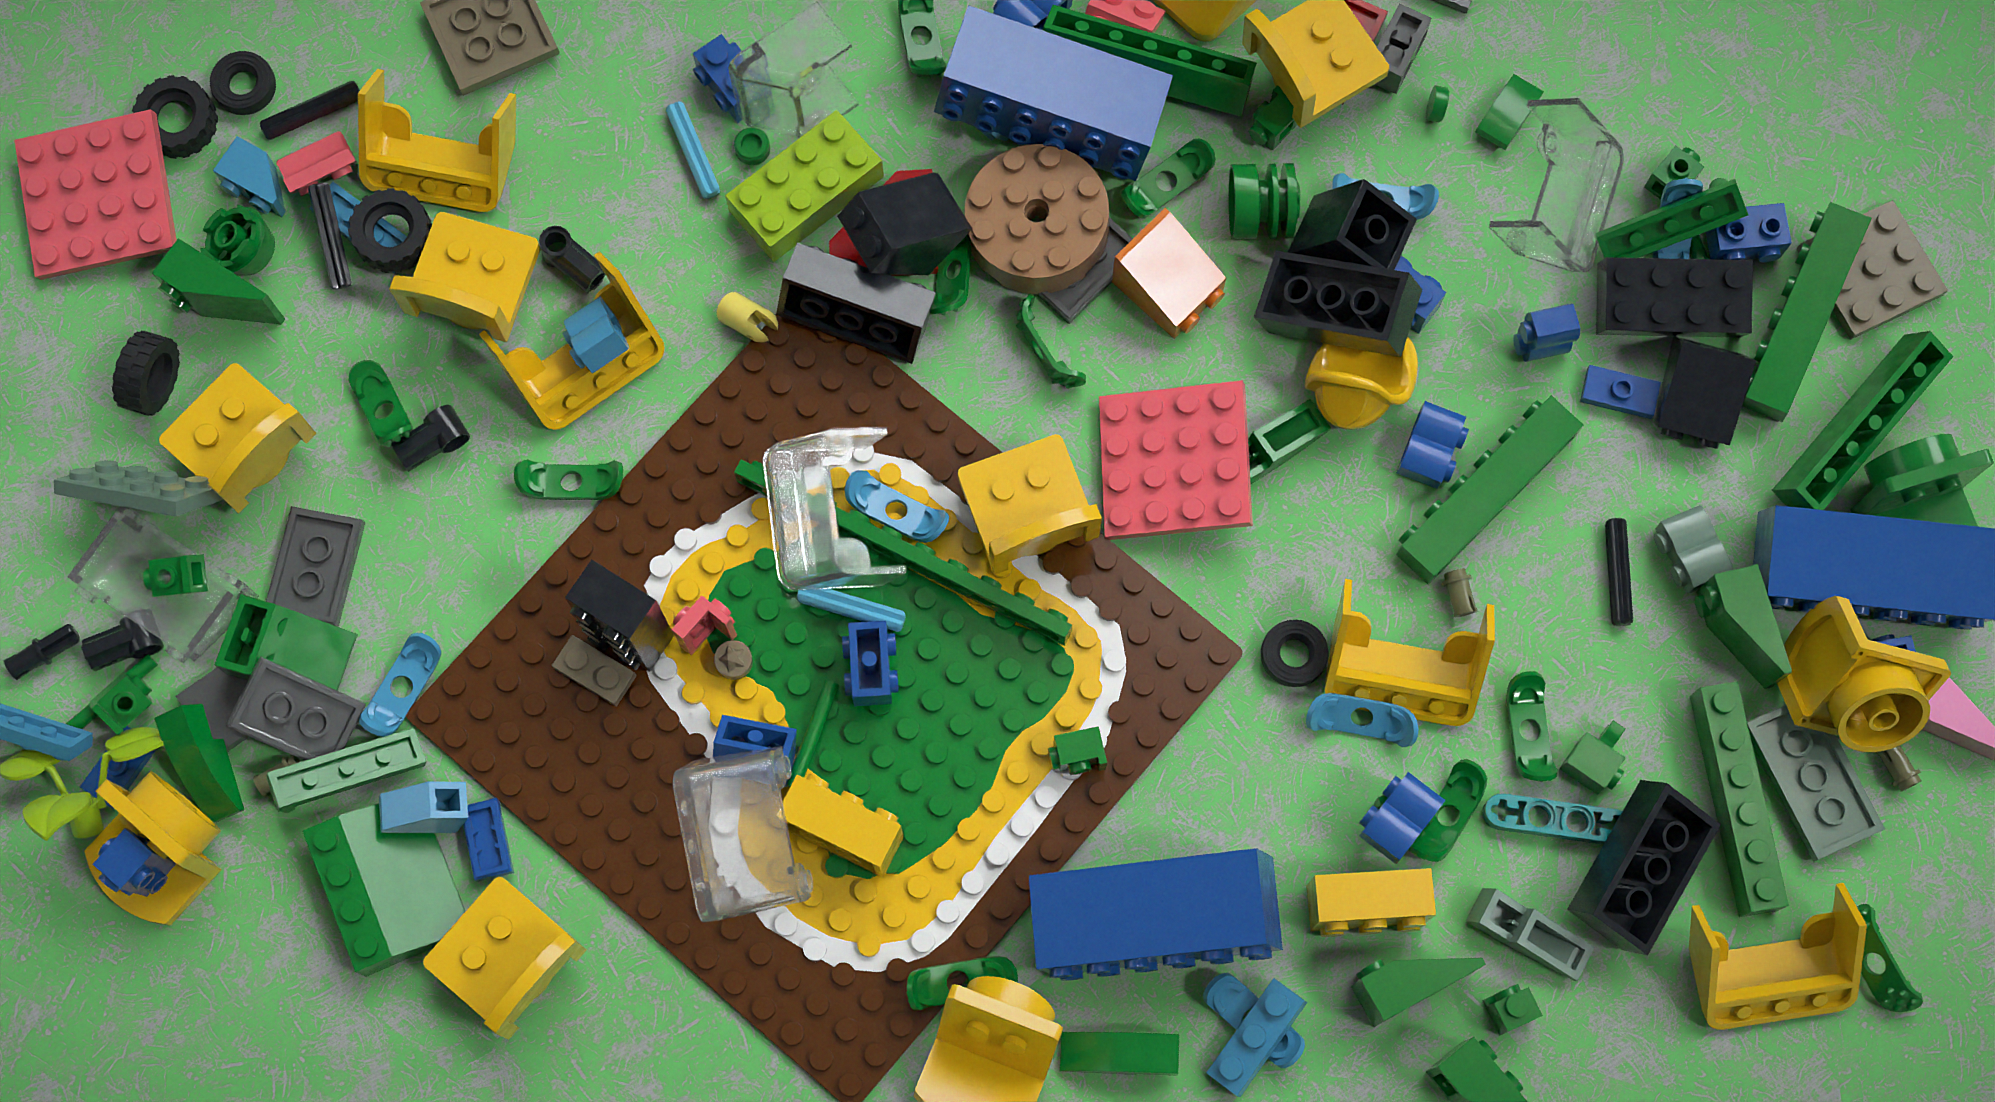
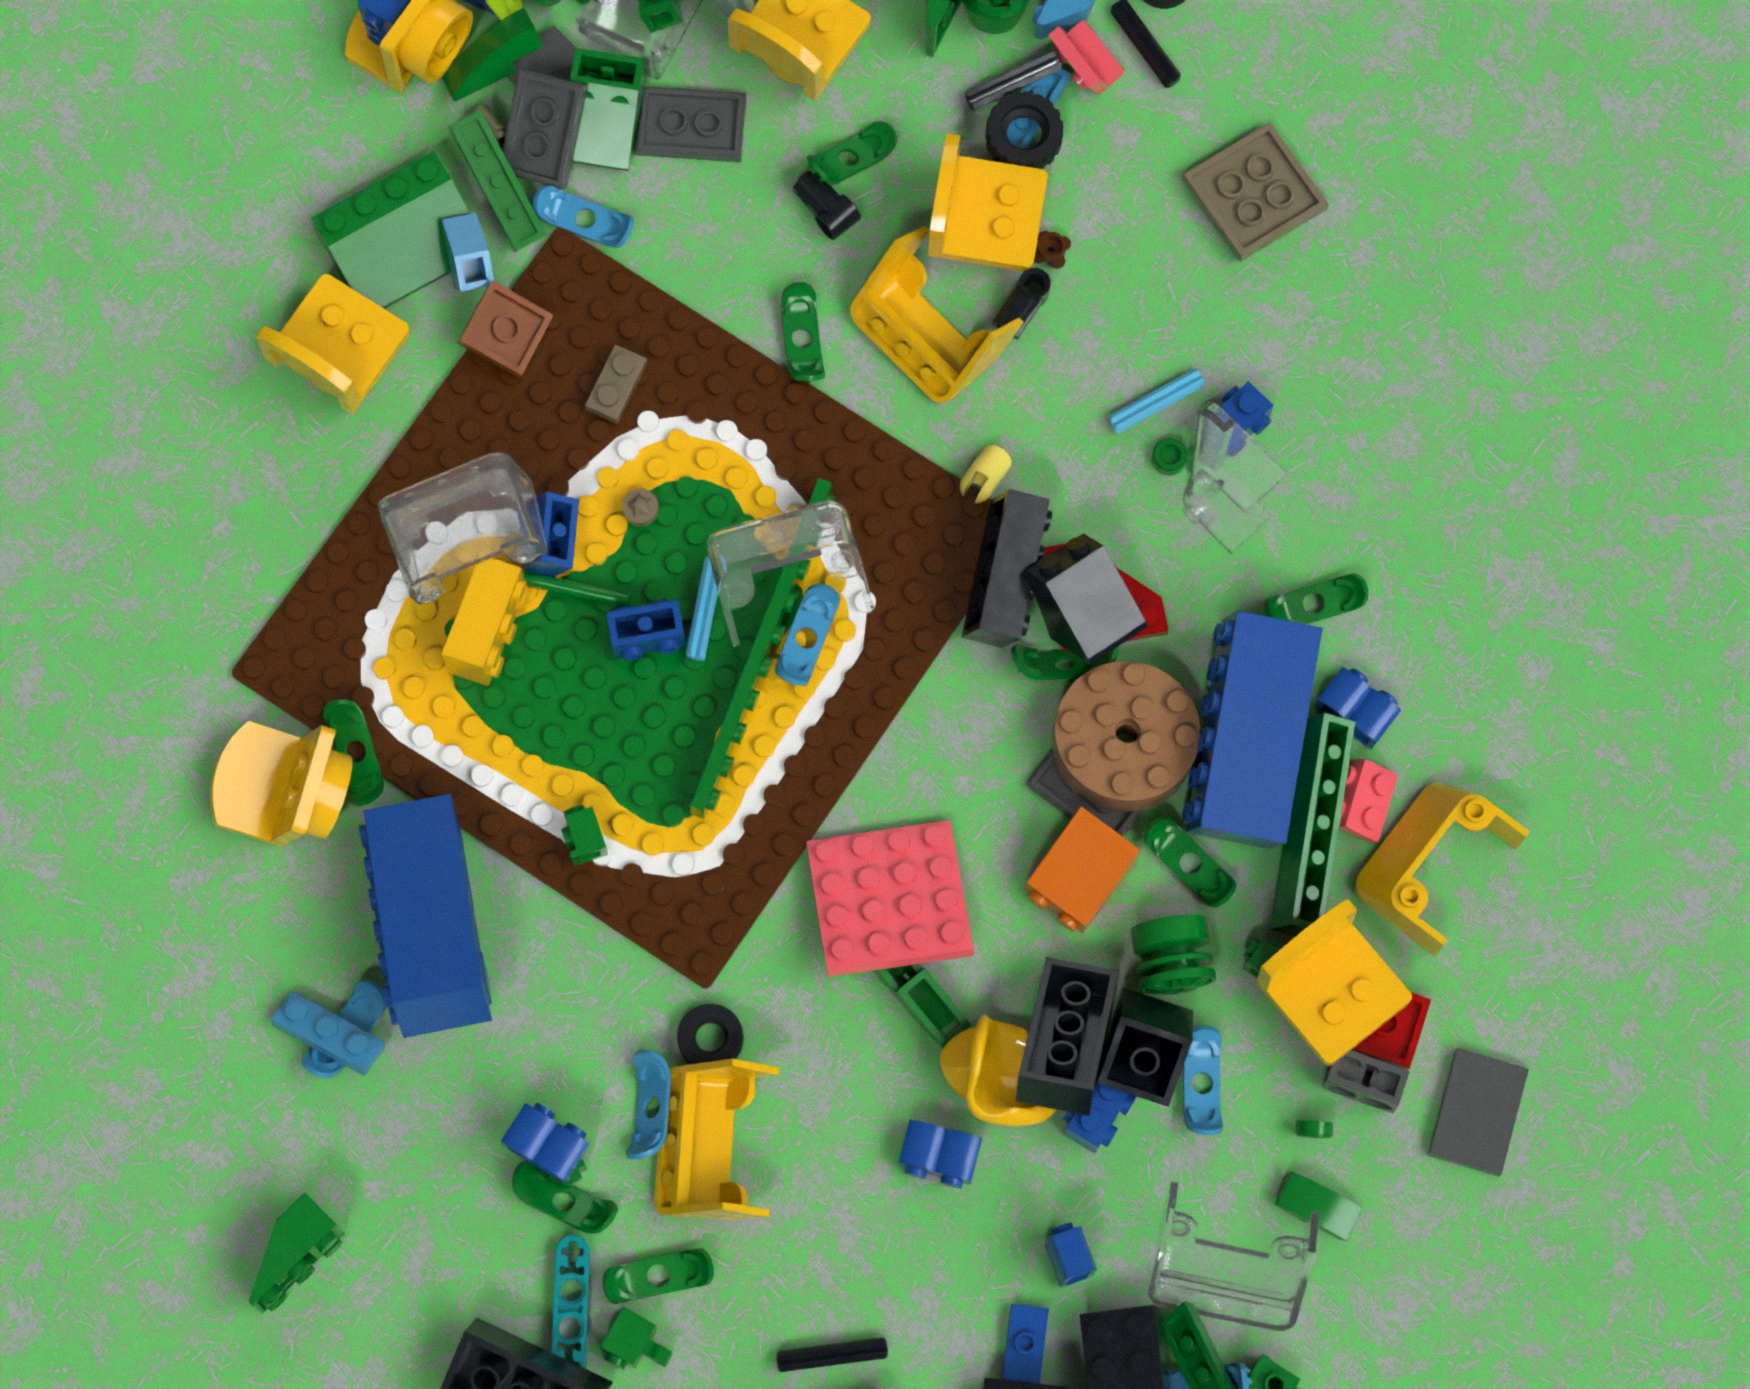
camera: 80 degrees right, 0 degrees up
(432, 166) = (1104, 153): yellow windscreen -> none
(487, 840) = (444, 315): blue plate -> none
(517, 218) = (1058, 242): none -> reddish brown plate
(517, 776) = (505, 329): none -> dark orange plate
(594, 335) = (942, 333): dark azure brick -> none
(619, 617) = (653, 387): black brick -> none
(699, 621) = (663, 464): coral bracket -> none
(804, 185) = (1130, 509): lime brick -> none
(1027, 501) = (821, 753): yellow piece -> none
(1056, 371) = (1016, 740): green piece -> none
(1120, 1053) = (302, 909): green slope -> none
(1370, 901) = (463, 1124): yellow brick -> none
(1403, 983) = (388, 1163): green slope -> none
(1460, 592) = (790, 1194): olive pin -> none
(1489, 489) = (901, 1214): green brick -> none
(1512, 1008) = (377, 1275): green brick -> none
(1530, 933) = (453, 1289): sand green slope -> none

